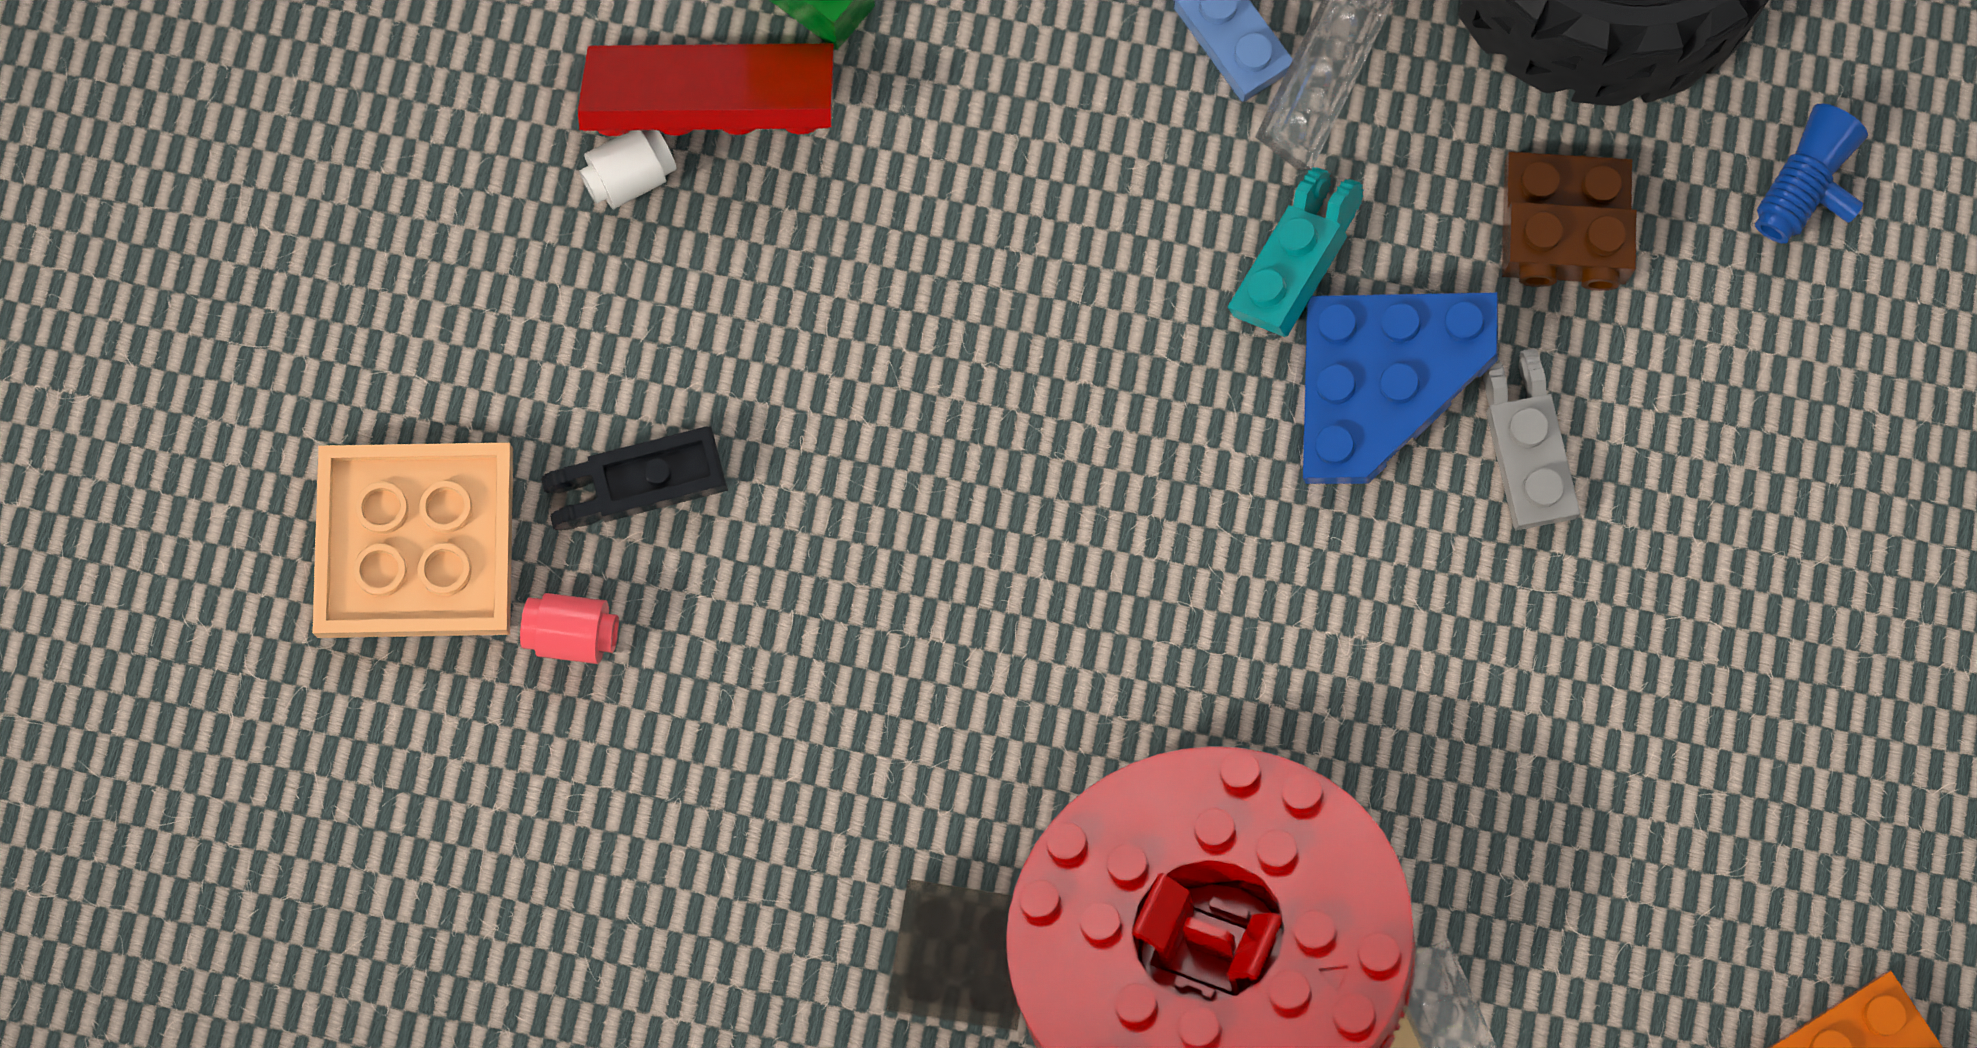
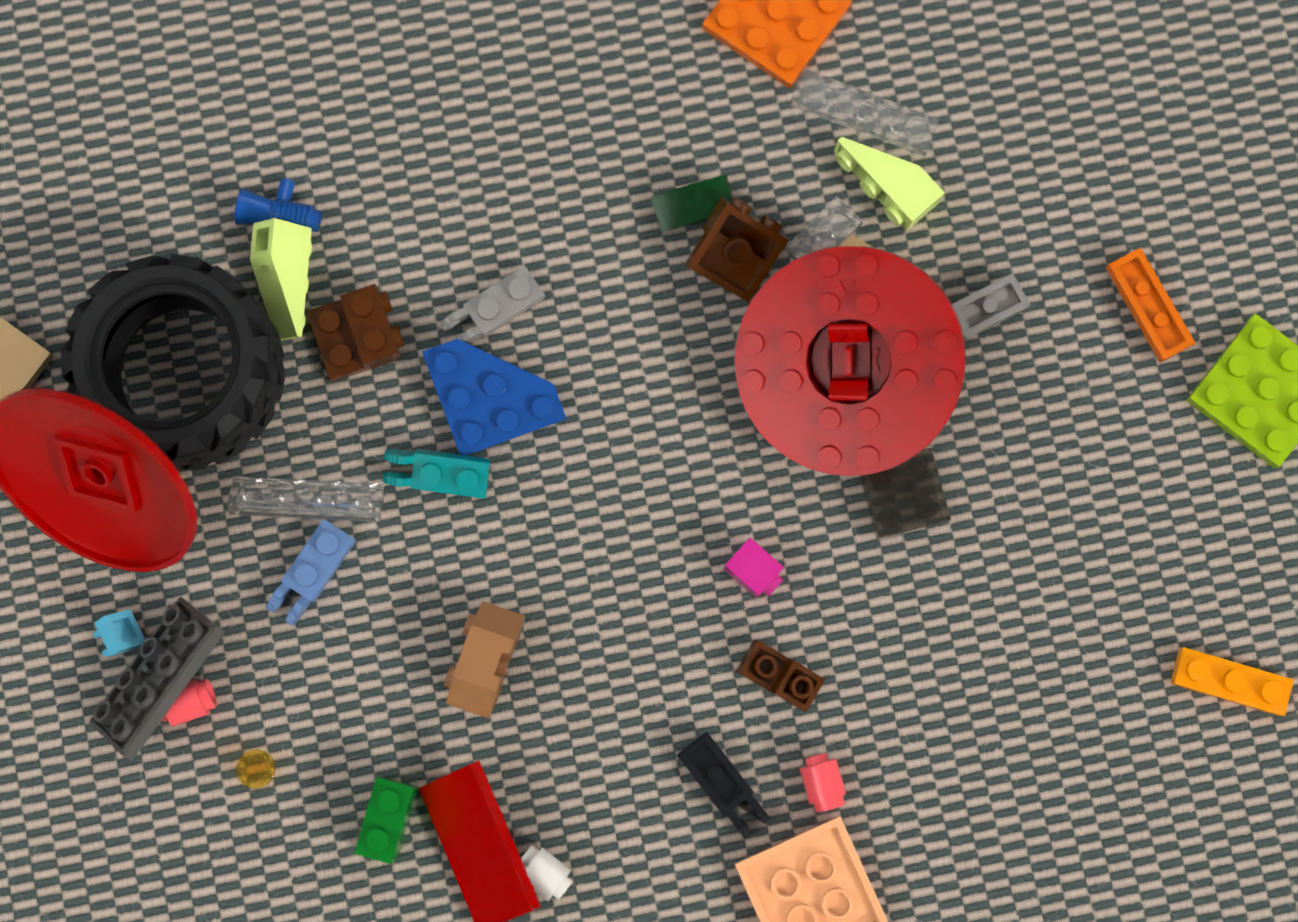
camera: 115 degrees left, 5 degrees up
(761, 637) = (780, 675): none -> reddish brown slope
(942, 664) = (755, 569): none -> dark pink brick
(989, 207) = (484, 659): none -> medium nougat brick
(1477, 856) = (737, 248): none -> reddish brown plate
(1580, 823) = (690, 202): none -> dark green slope
(1719, 143) = (281, 269): none -> yellowish green slope

